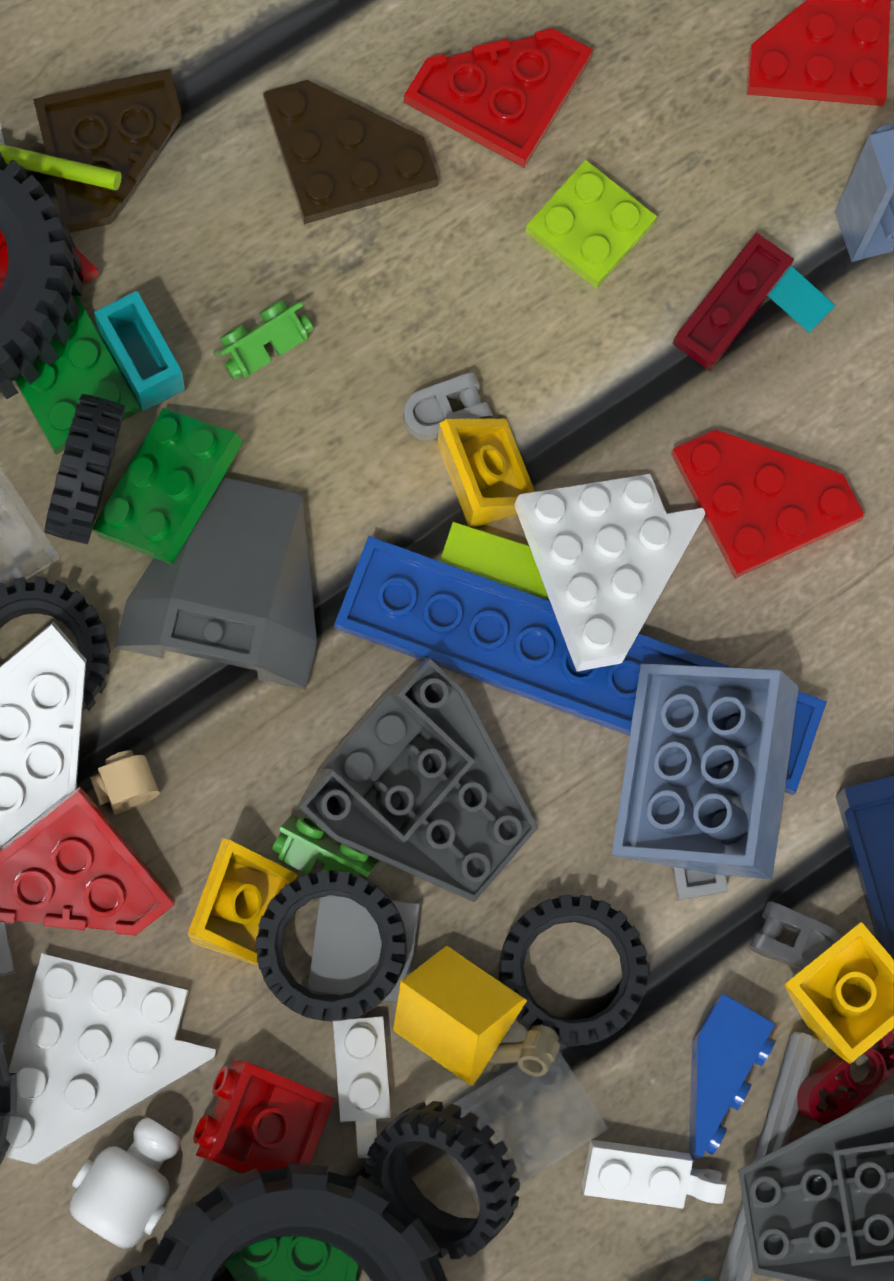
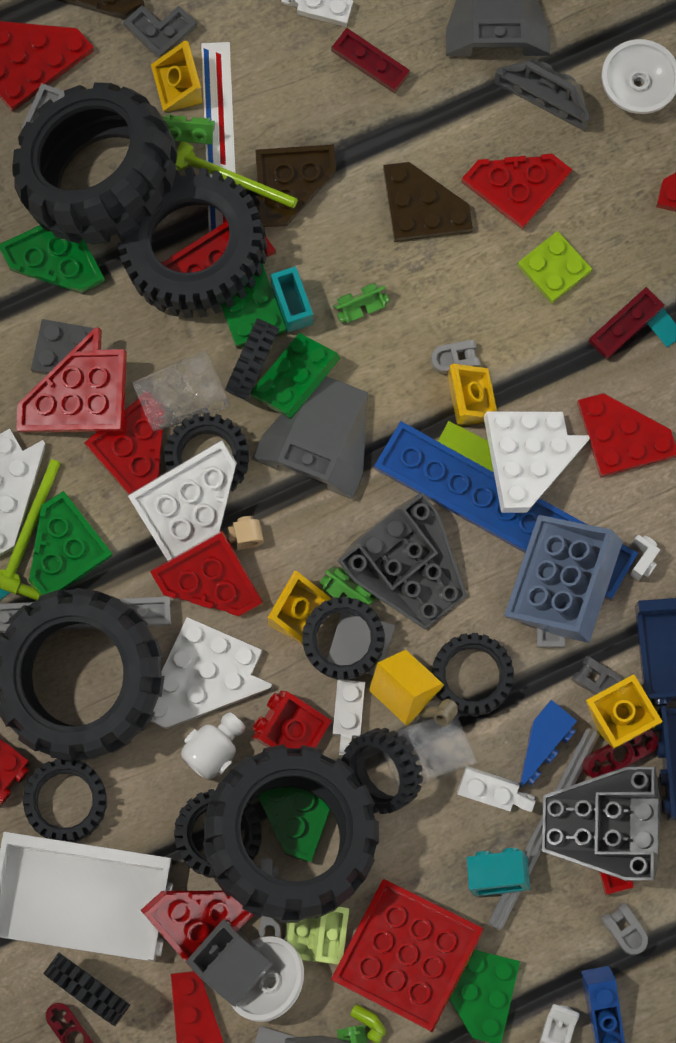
camera: 15 degrees right, 0 degrees up
(843, 719) = (645, 564): none -> white bracket

